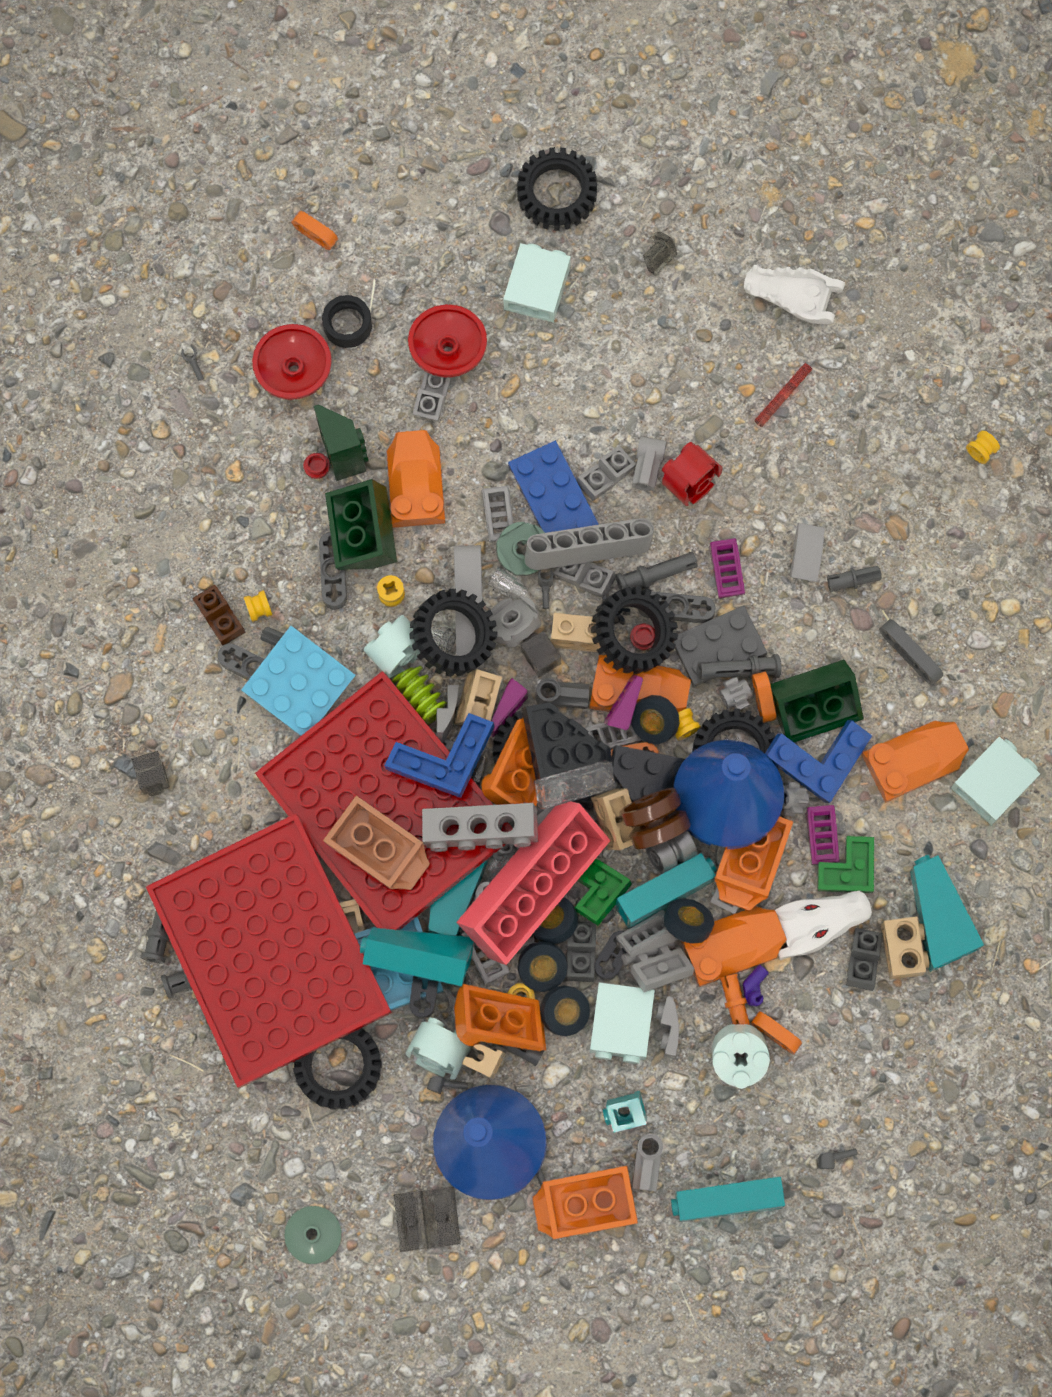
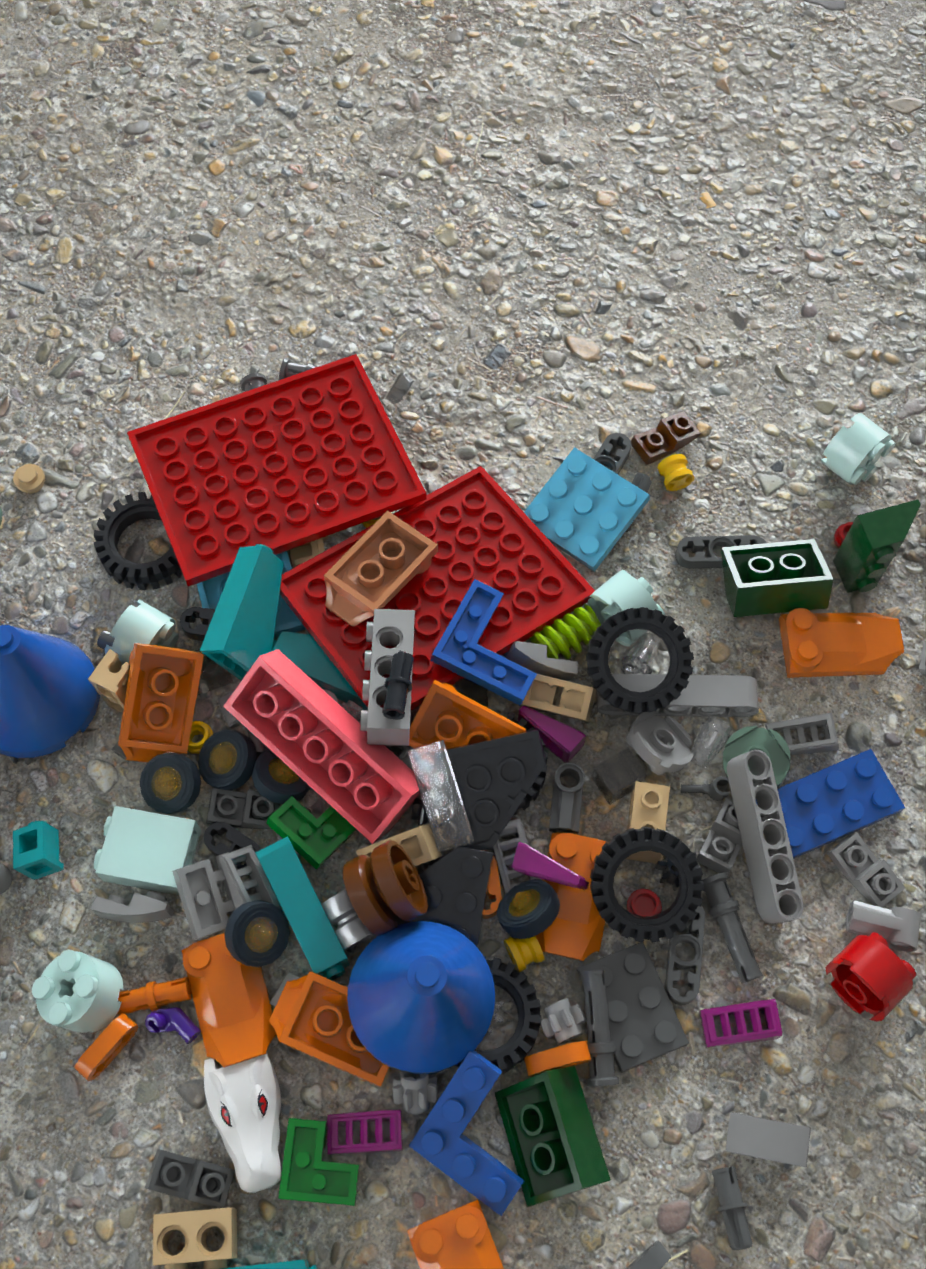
camera: 90 degrees right, 10 degrees down
(151, 773) = (485, 370): clear smoke brick -> none
(238, 452) = (857, 449): none -> light aqua brick
(272, 1184) = (29, 478): none -> tan plate
(392, 596) = (693, 617): yellow wheel -> none
(497, 812) = (398, 686): none -> black axle

